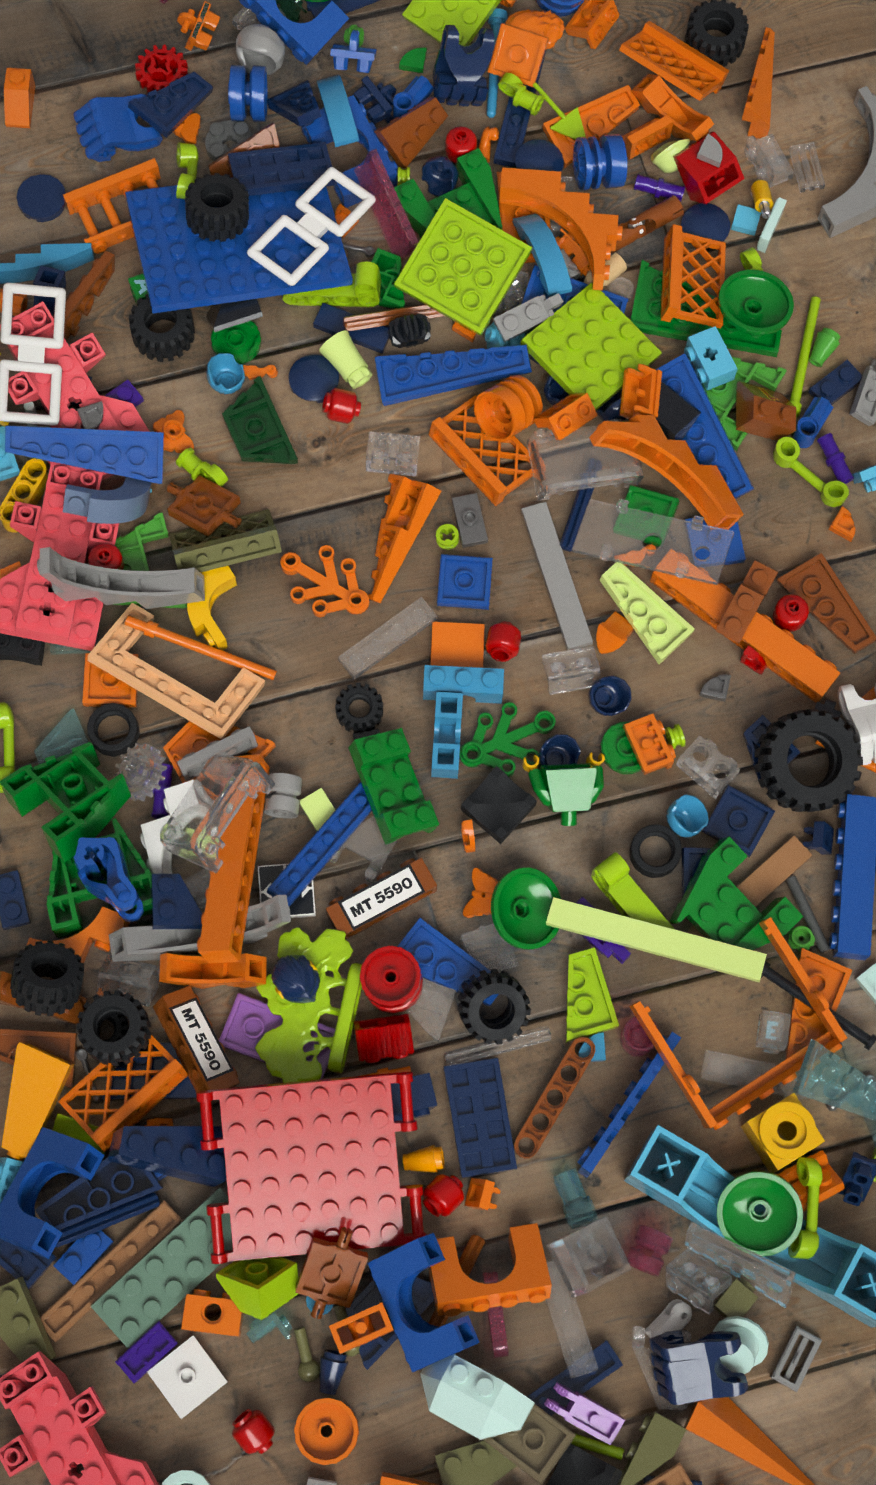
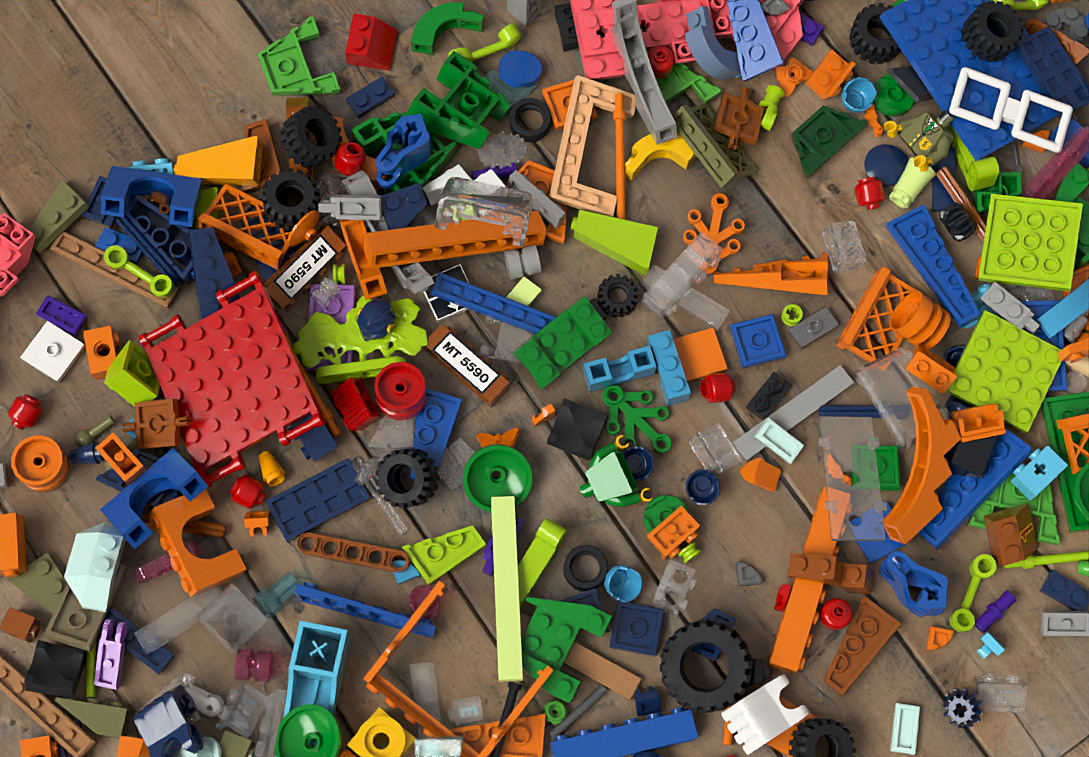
camera: 70 degrees right, 0 degrees up
(46, 718) = (519, 69): none -> blue tile
(47, 1185) = (161, 200): none -> reddish brown arm
(90, 943) = (350, 158): none -> red head
(103, 1259) = (119, 259): none -> lime piece
(155, 958) = (353, 207): none -> light grey hinge
(159, 1022) = (304, 229): none -> orange dish
(163, 1275) = (118, 305): sand green plate -> none
(189, 394) = (829, 75): none -> orange bracket
(218, 1006) = (339, 274): none -> lime bush
(239, 1027) = (326, 292): none -> clear wheel
(260, 1328) = (111, 399): clear light blue bracket -> none
(294, 683) = (617, 238): none -> lime slope
(304, 322) = (926, 136): none -> olive torso
(366, 629) = (682, 275): none -> clear brick
(464, 1037) = (369, 468): none -> clear tile
(529, 594) = (768, 396): none -> black tile
(583, 600) = (778, 440): none -> light aqua tile
(648, 614) = (787, 498): yellowish green wing -> none
(801, 508) = (914, 575): none -> blue piece
(812, 421) = (1021, 580): blue piece -> none

